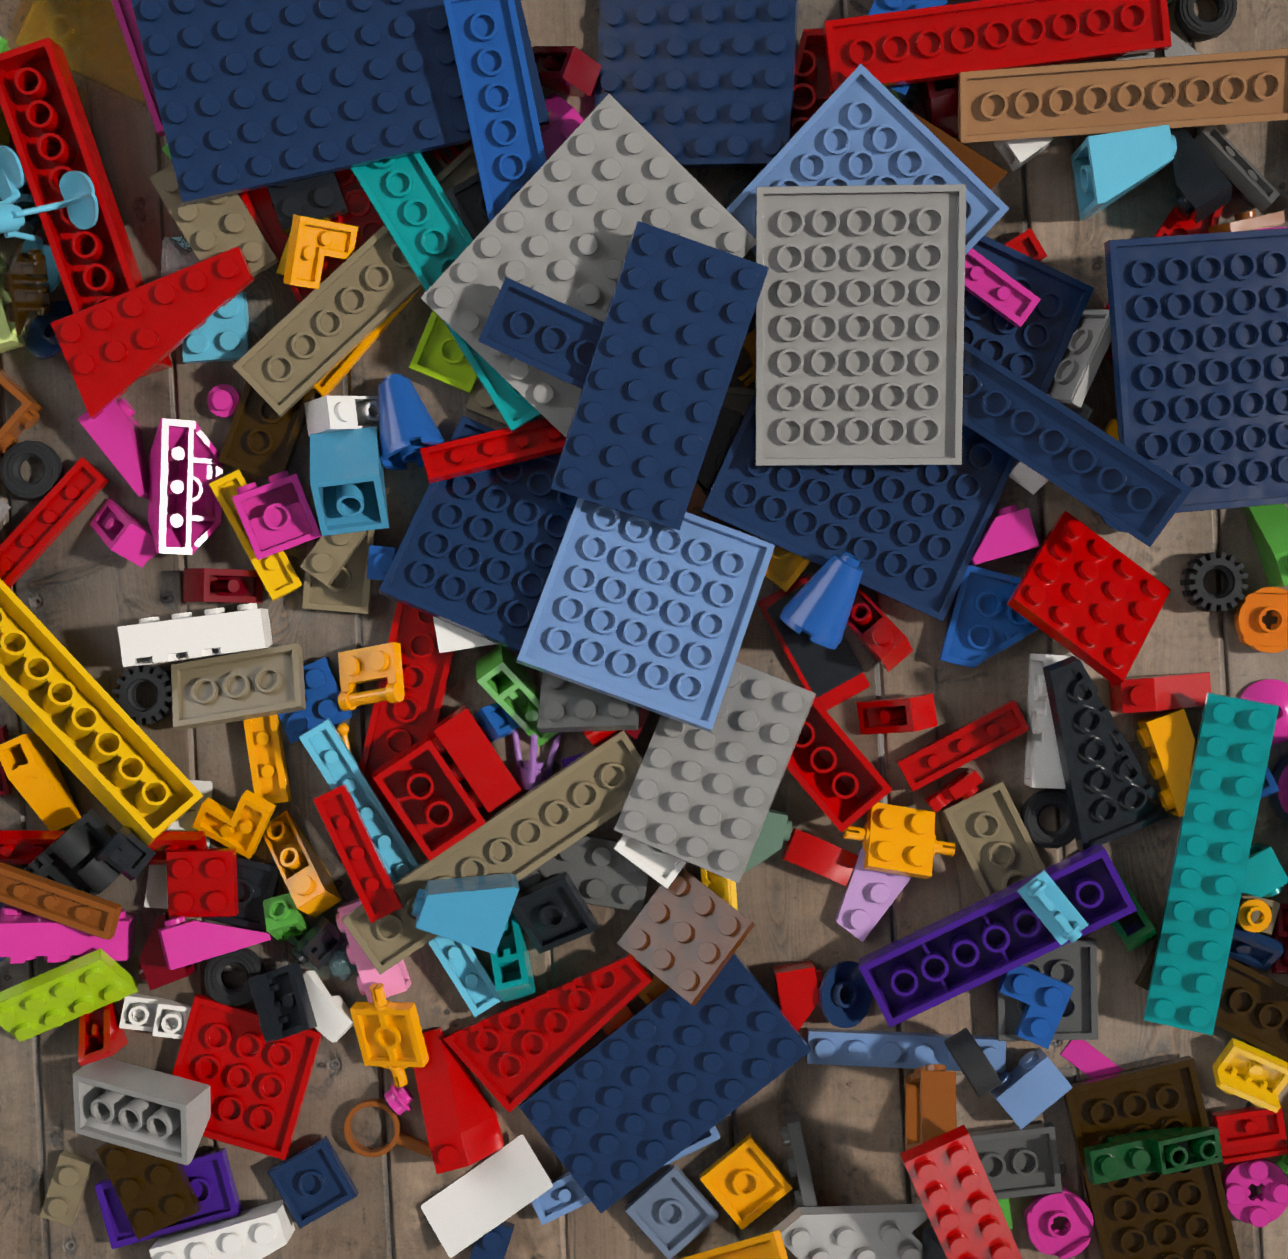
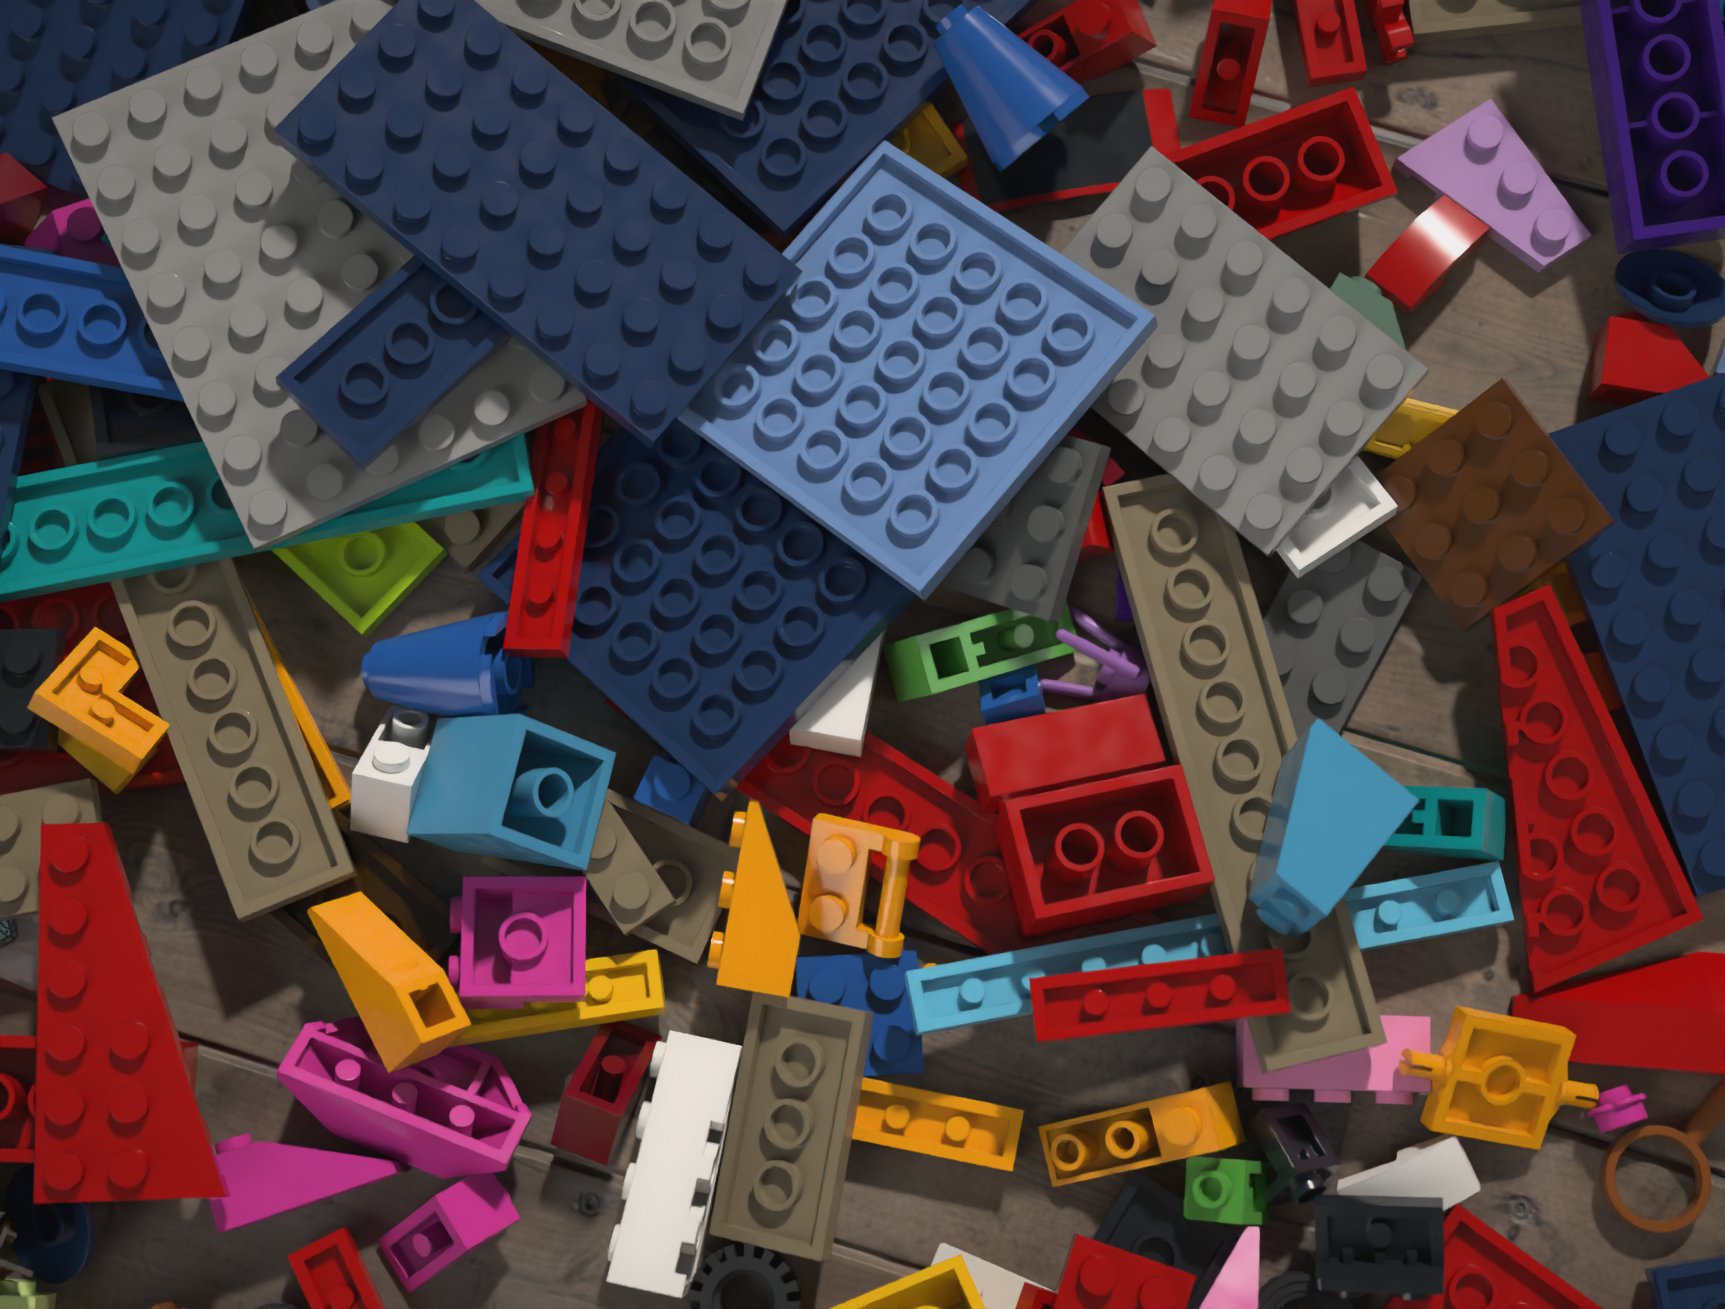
camera: 60 degrees left, 10 degrees down
(222, 336) = (186, 938): medium azure plate -> none
(223, 400) = (291, 972): dark pink plate -> none
(231, 455) = (390, 981): none -> light orange slope
(239, 828) = (1042, 1220): light orange plate -> none
(328, 636) = (761, 927): none -> light orange slope
(341, 966) = (1346, 1122): clear light blue plate -> none
(553, 913) = (1382, 710): black plate -> none
(899, 840) = (1443, 115): light orange plate -> none

